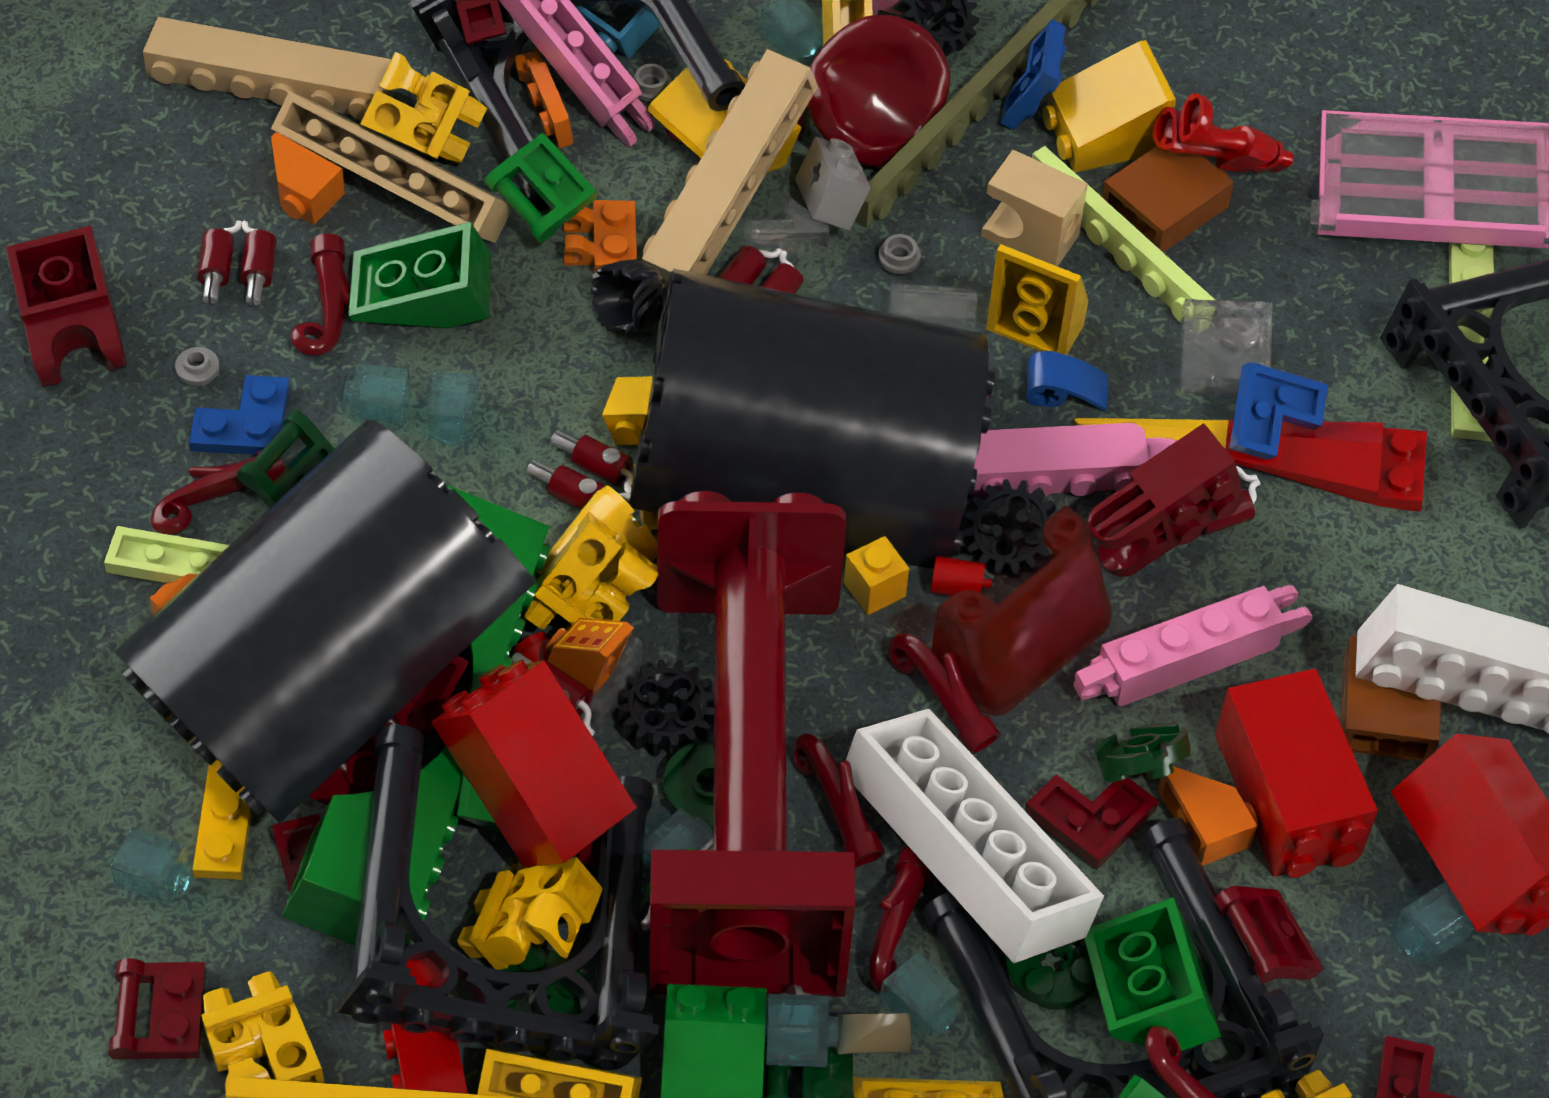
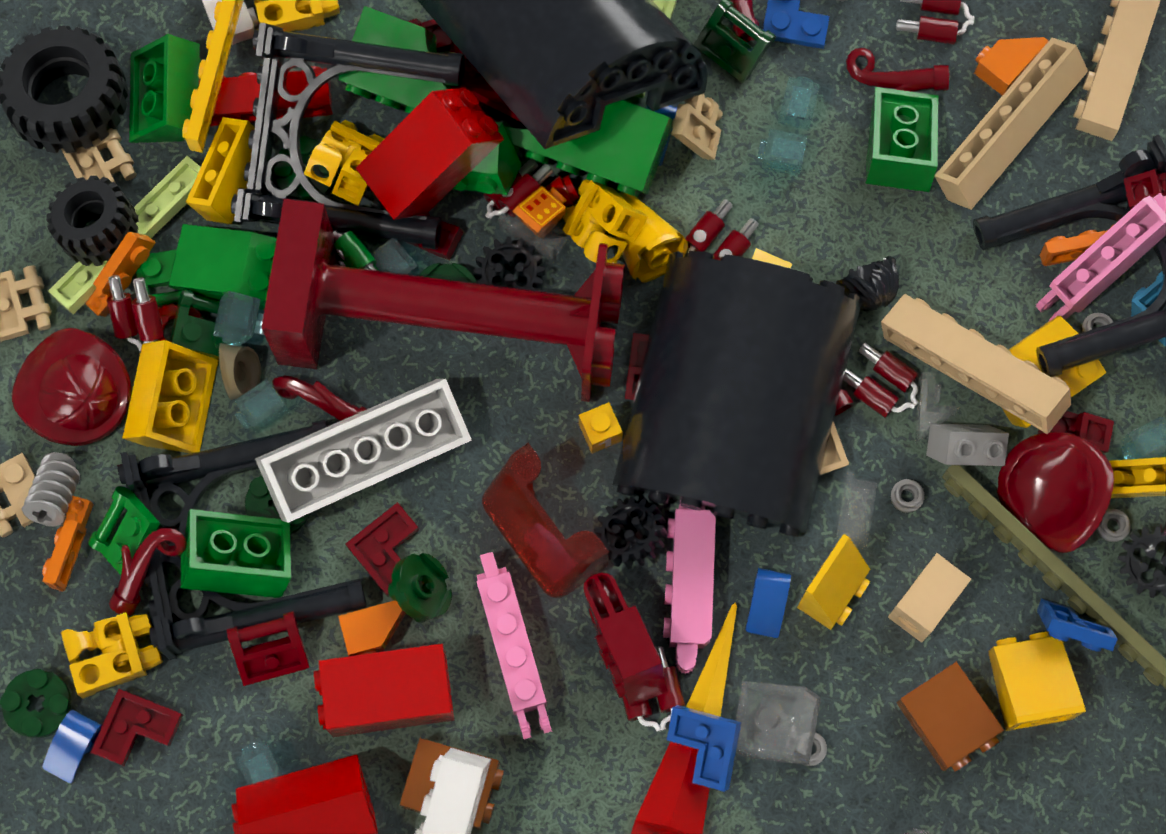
camera: 100 degrees right, 20 degrees up
(433, 116) = (1052, 149): yellow hips -> none
(551, 178) = (978, 232): green plate -> none
(613, 234) = (941, 283): orange plate -> none
(813, 757) = (385, 386): dark red plant -> none
(910, 653) = (466, 478): dark red plant -> none
(958, 575) = (595, 489): red piece -> none
(1130, 247) = (916, 659): yellowish green plate -> none
(1234, 149) = (985, 727): red piece -> none

